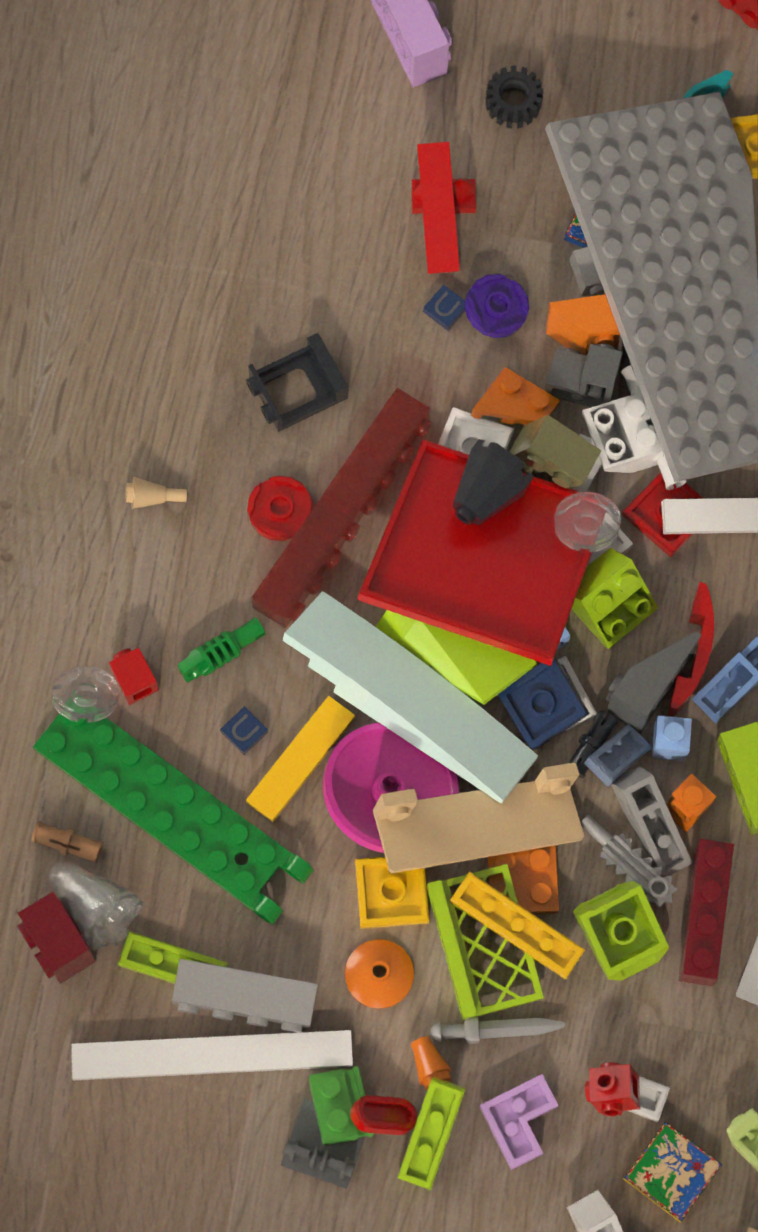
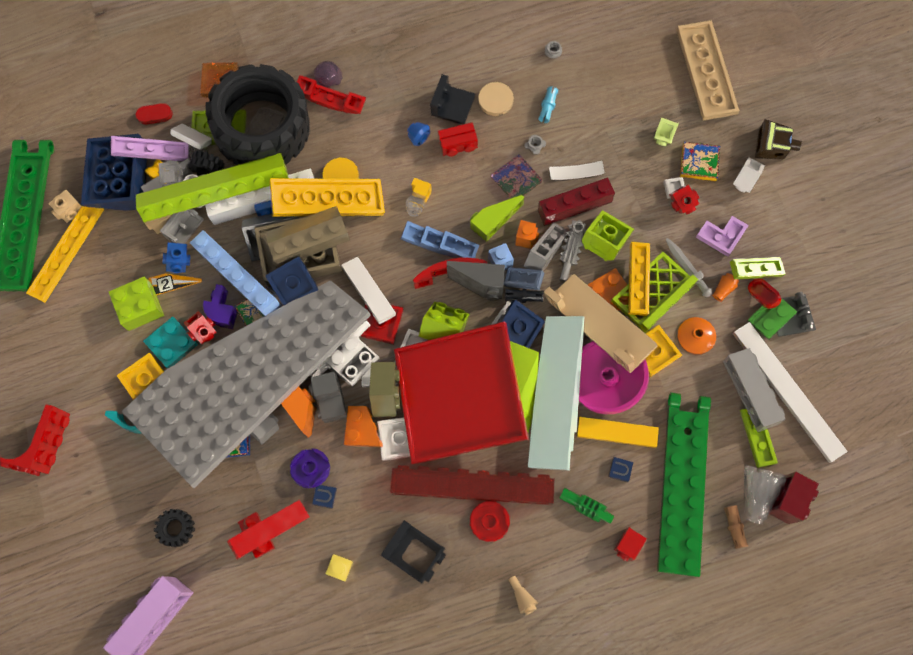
camera: 115 degrees left, 0 degrees up
(85, 693) = (656, 564): clear tile -> none
(335, 280) = (339, 567): none -> light yellow plate
(489, 483) = (424, 407): black cone -> none
(587, 521) = (413, 350): clear tile -> none

